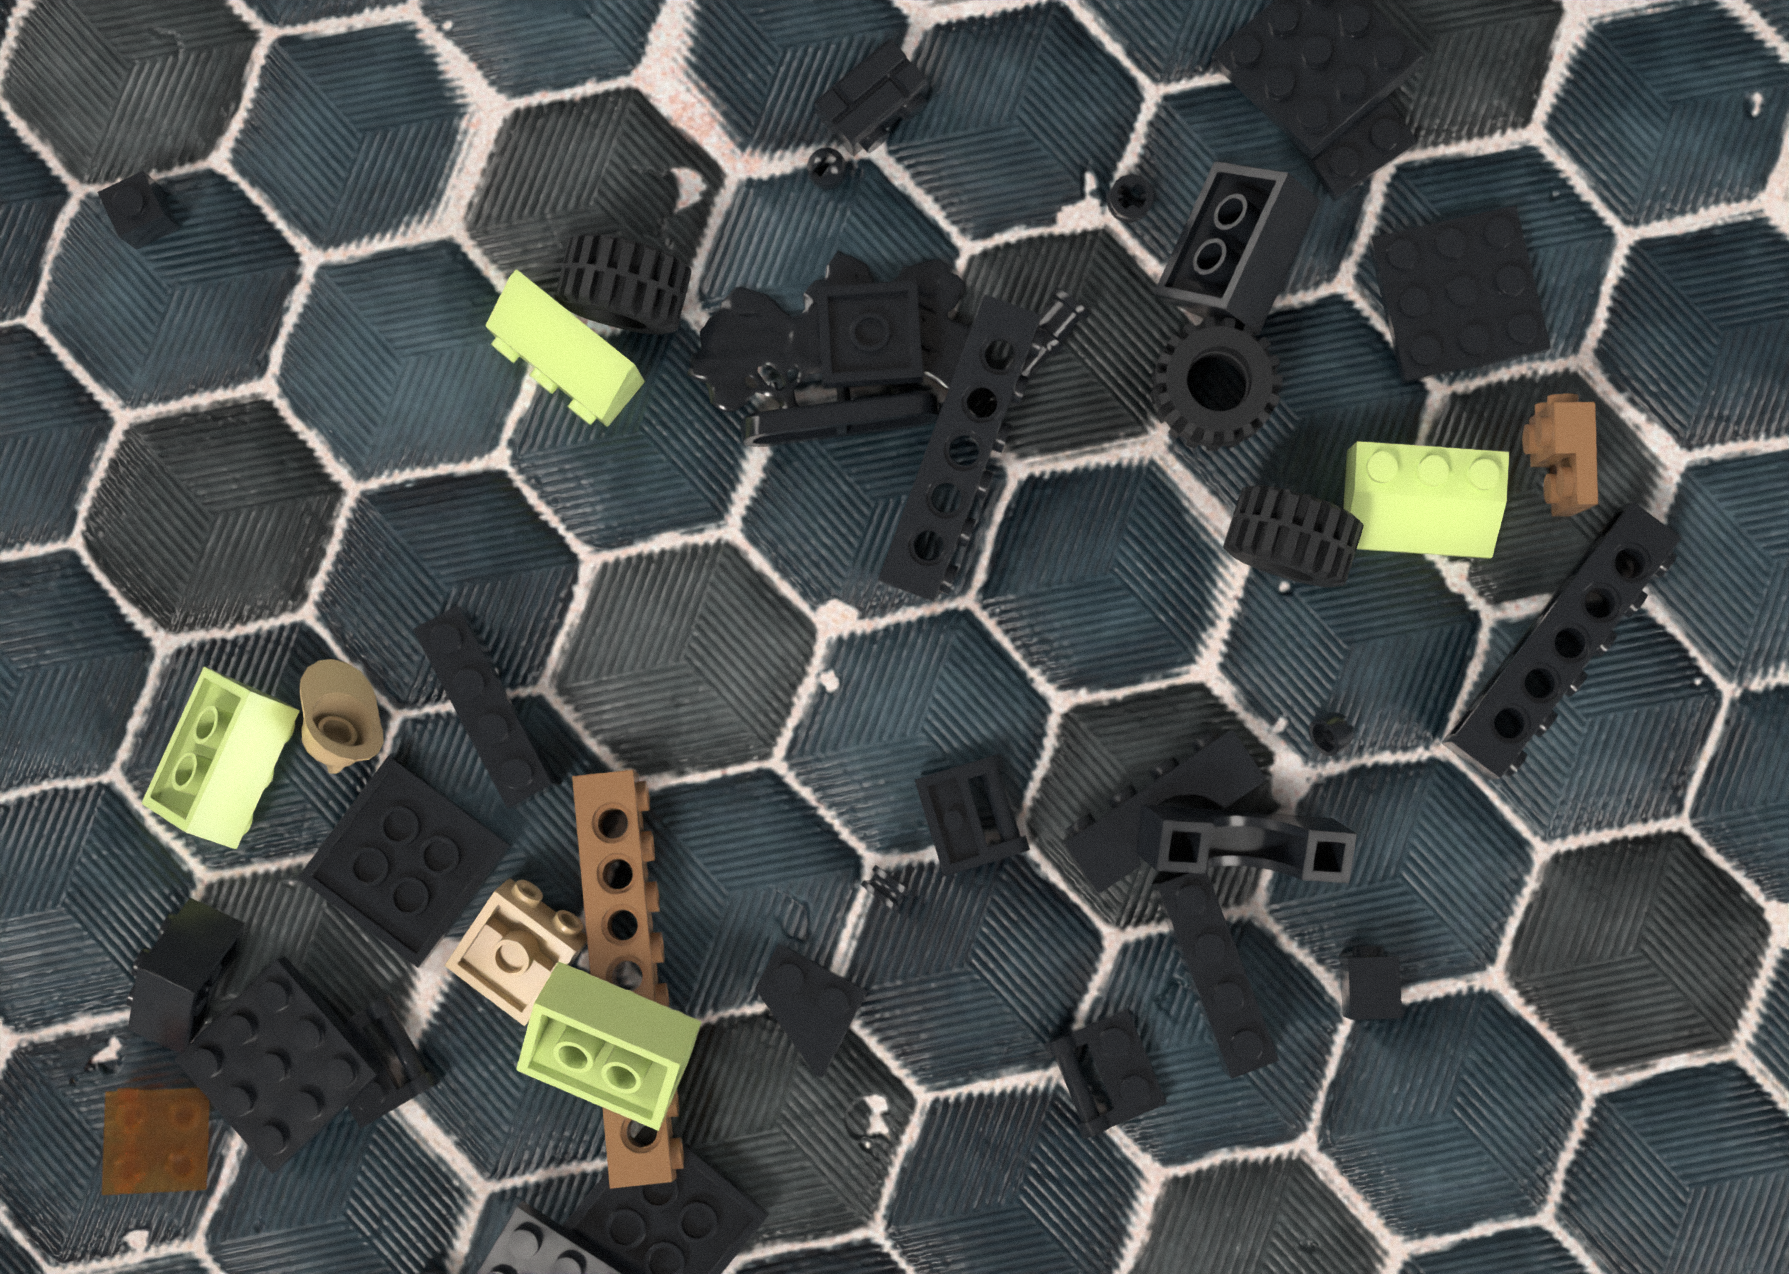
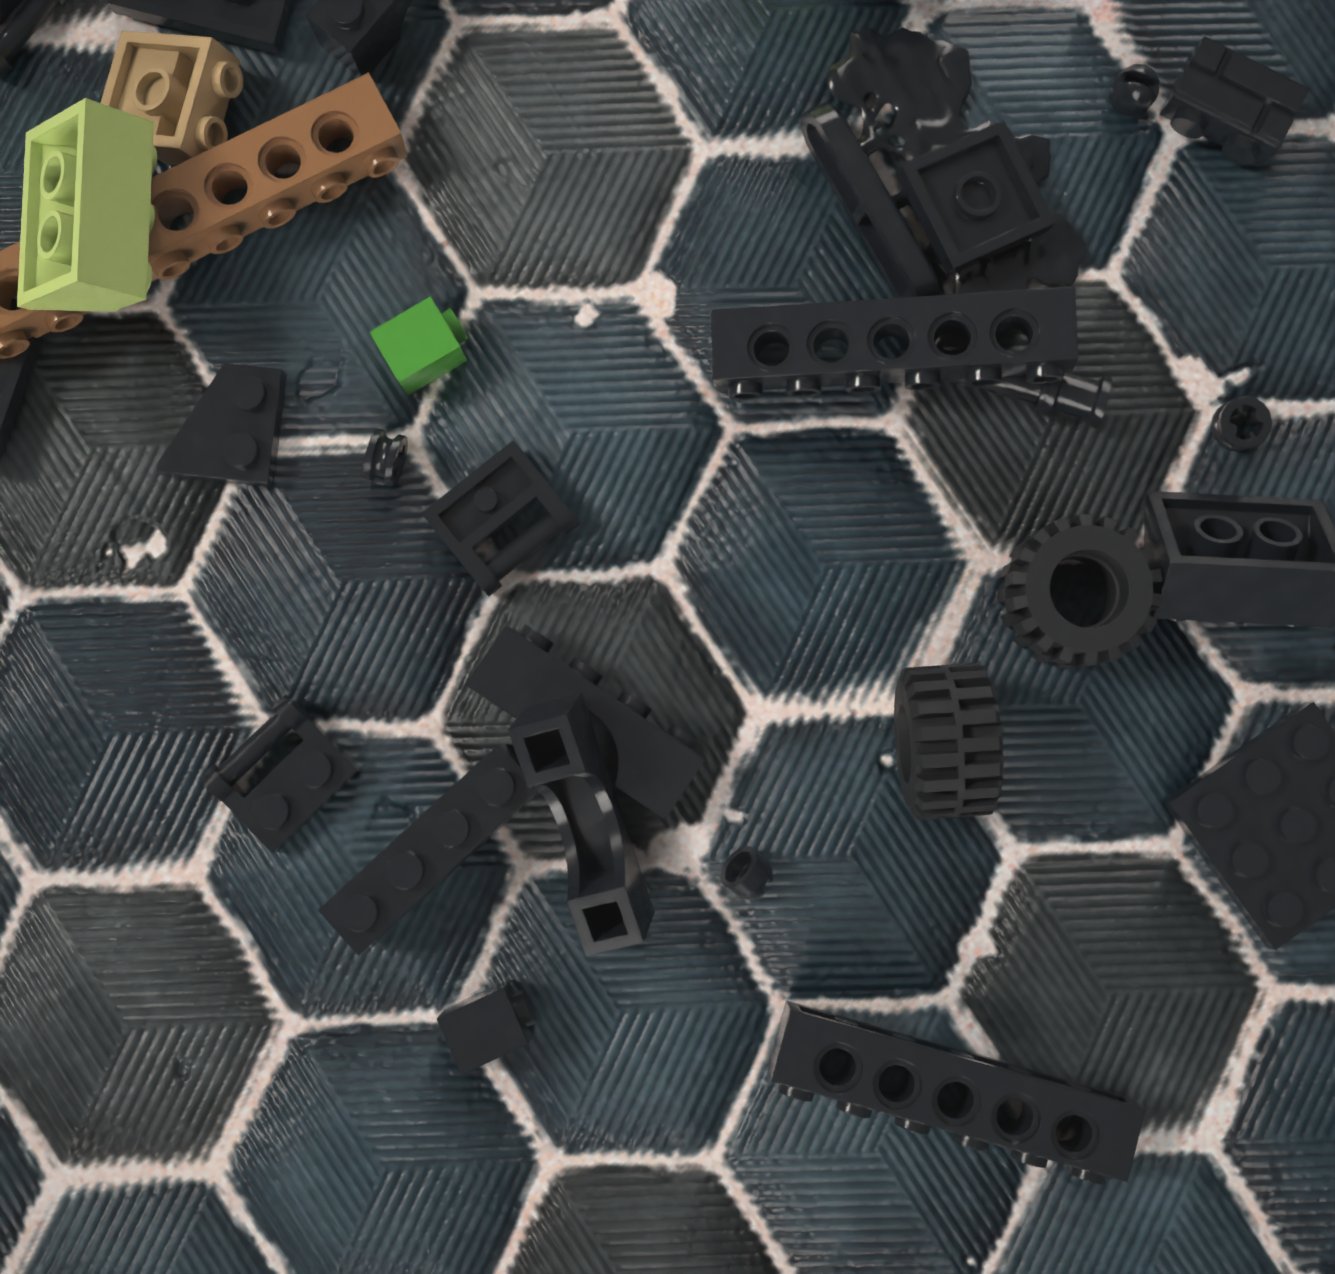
camera: 65 degrees right, 0 degrees up
(806, 822) = (421, 344): none -> bright green brick
(1426, 498) = (1050, 876): yellowish green slope -> none
(1565, 440) = (1177, 1007): medium nougat plate -> none

